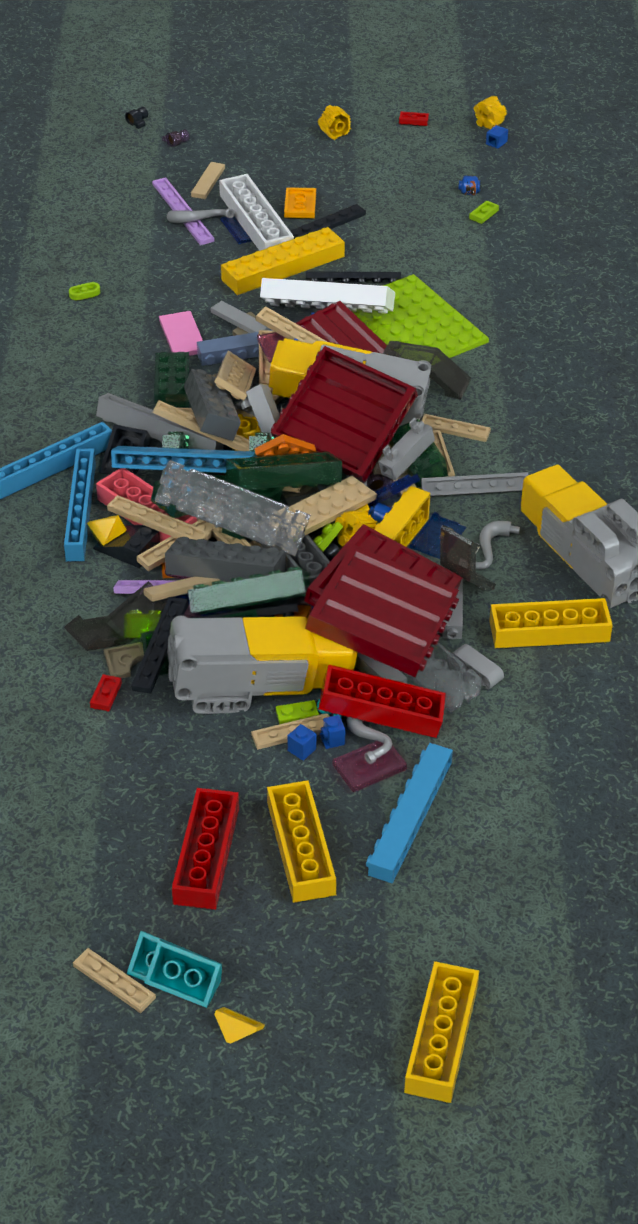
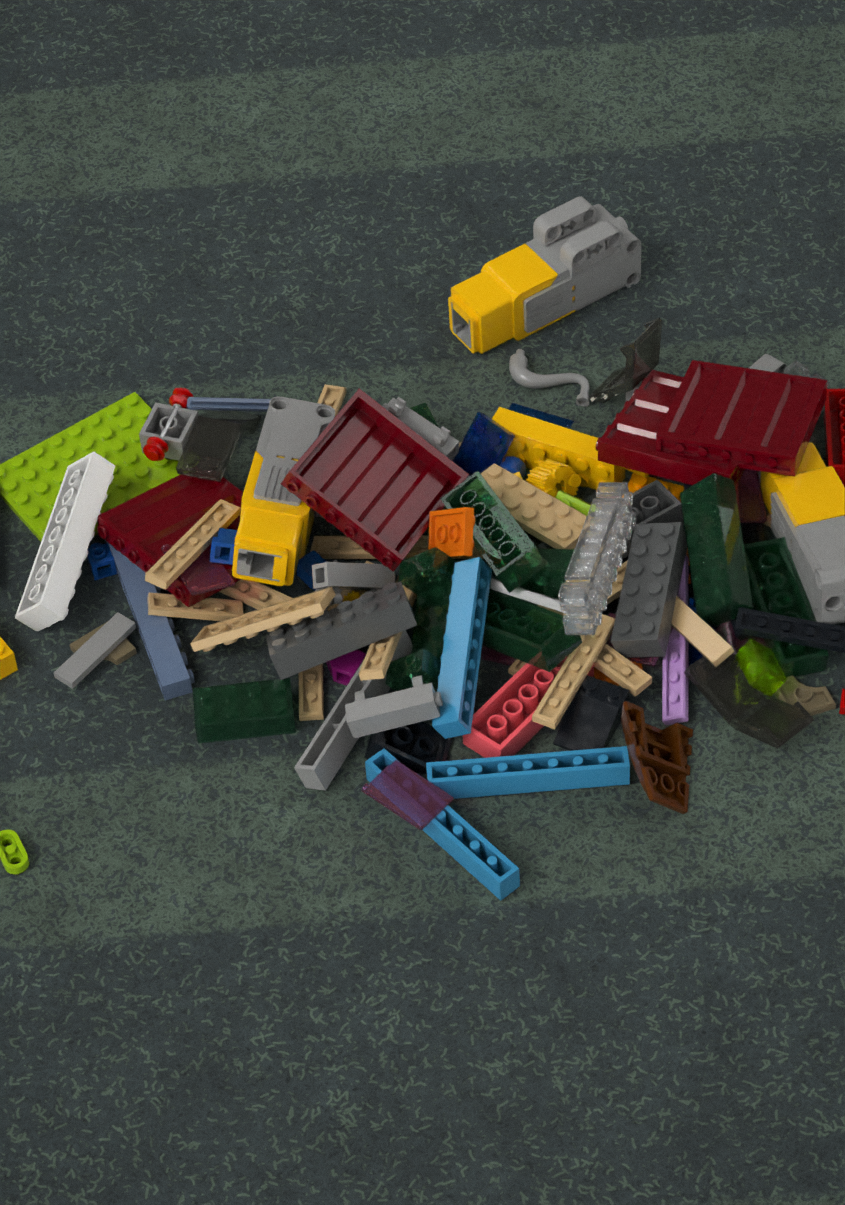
camera: 90 degrees left, 5 degrees up
(66, 437) = (407, 794): none -> clear pink piece
(73, 564) = (658, 757): none -> reddish brown wedge
(107, 528) = (581, 733): yellow slope -> none
(132, 423) = (393, 709): none -> light grey brick
(181, 332) = (120, 720): bright pink tile -> none
(431, 335) = (168, 427): none -> light grey brick
(458, 374) = (227, 404): none -> sand blue axle
(473, 484) = (440, 388): light grey plate -> none
(550, 623) = (683, 315): yellow brick -> none

